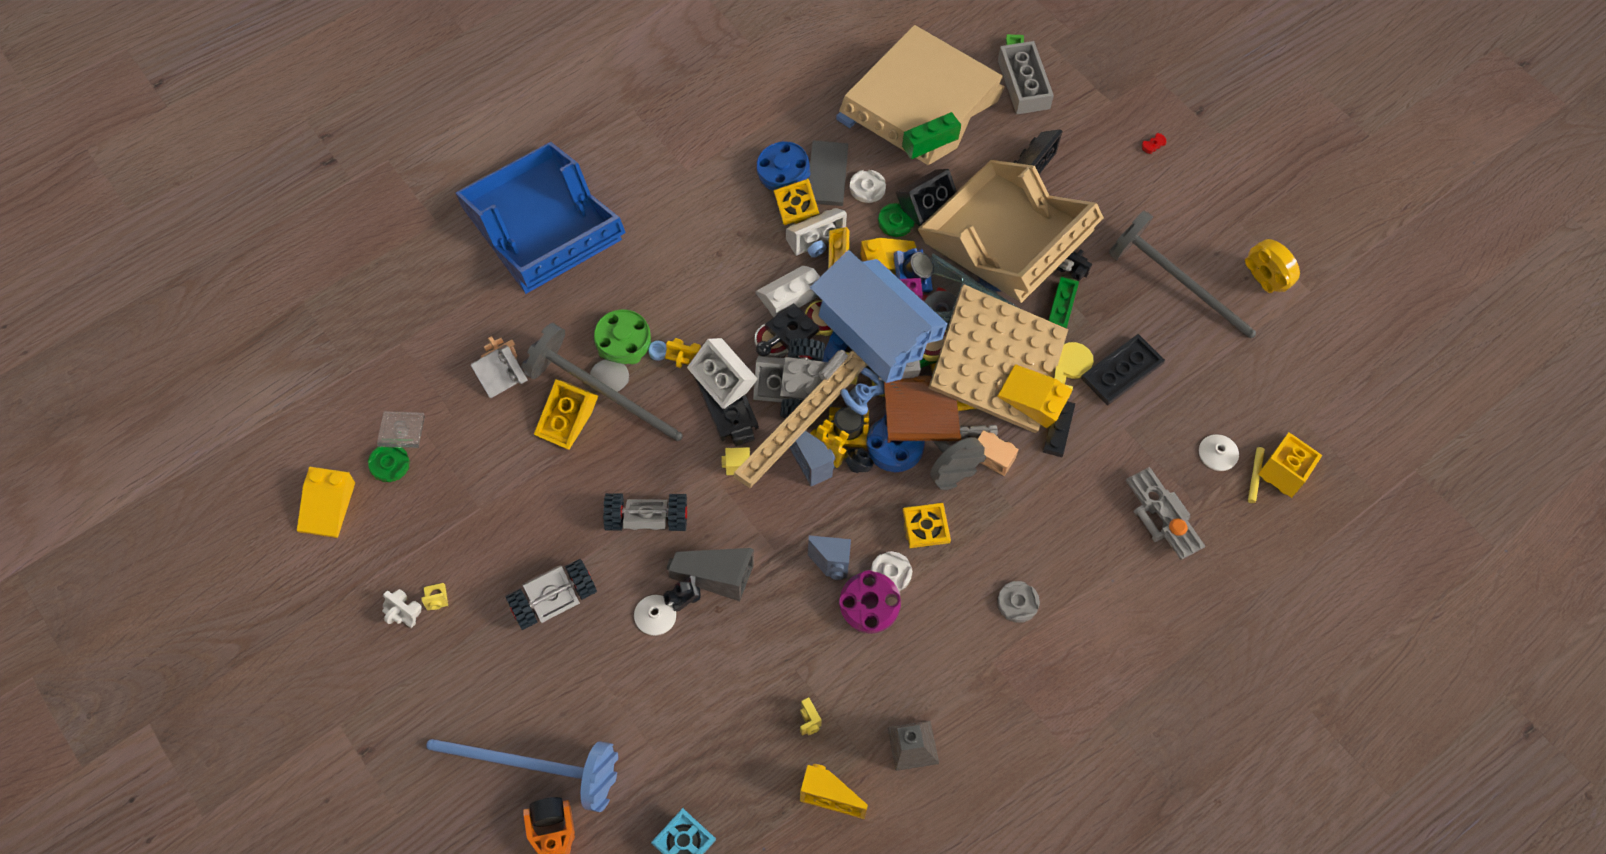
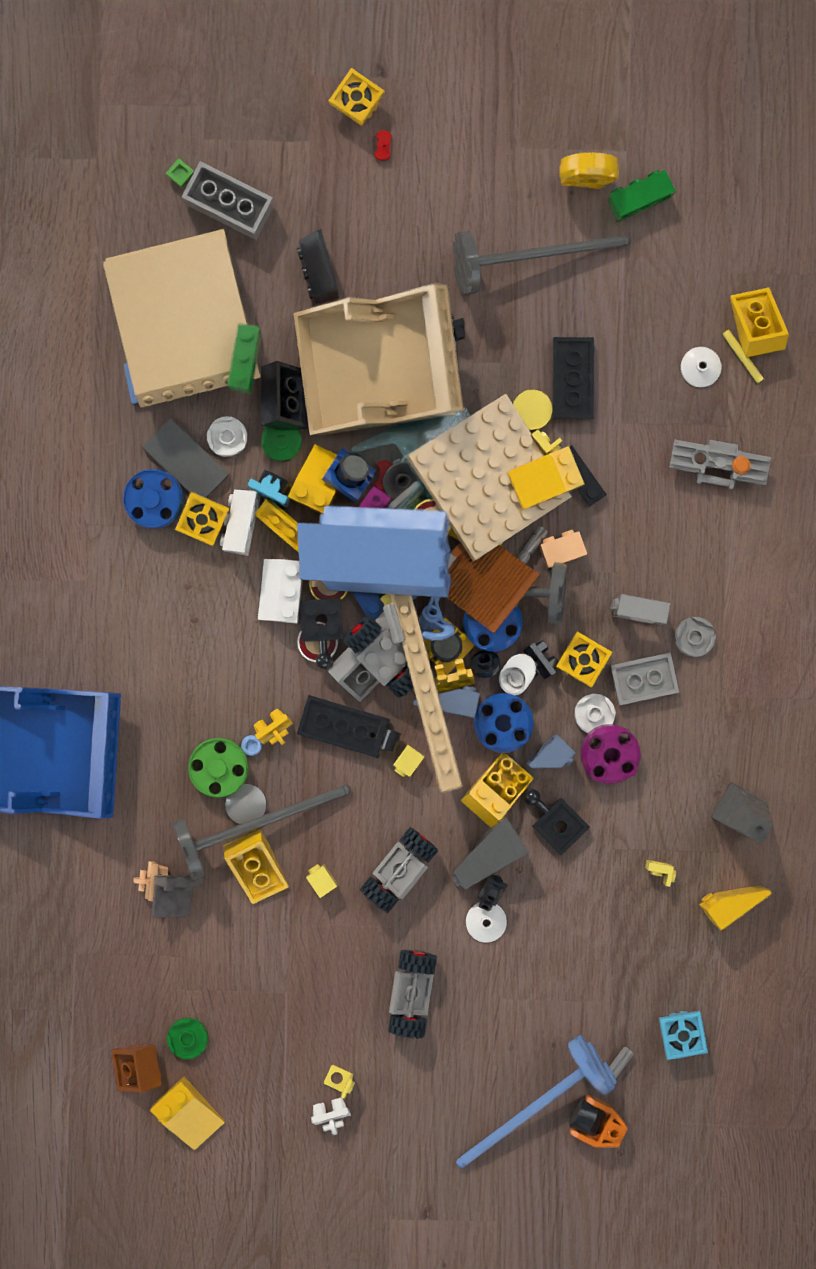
camera: 50 degrees left, 25 degrees up
(338, 441) = (136, 1068): none -> dark orange slope
(401, 429) = (165, 1009): clear plate -> none
(591, 466) = (321, 880): none -> light yellow brick
(615, 812) = (620, 1061): none -> light grey axle
(721, 372) = (321, 714): white slope -> none
(771, 539) = (497, 789): none -> yellow slope
(774, 598) = (557, 812): none -> black plate
(817, 248) = (259, 535): light blue tile -> none
(825, 506) = (503, 723): none -> blue piece
(859, 228) = (271, 487): none -> medium azure piece
(871, 486) = (517, 674): none -> white cap
(893, 495) = (543, 666): none -> black hips
(951, 586) = (644, 679): none -> light grey plate
(1001, 537) = (640, 609): none -> light grey window
(1063, 302) = (476, 373): green plate -> none
(1167, 104) = (356, 98): none -> yellow piece
(1292, 319) = (641, 195): none -> green brick

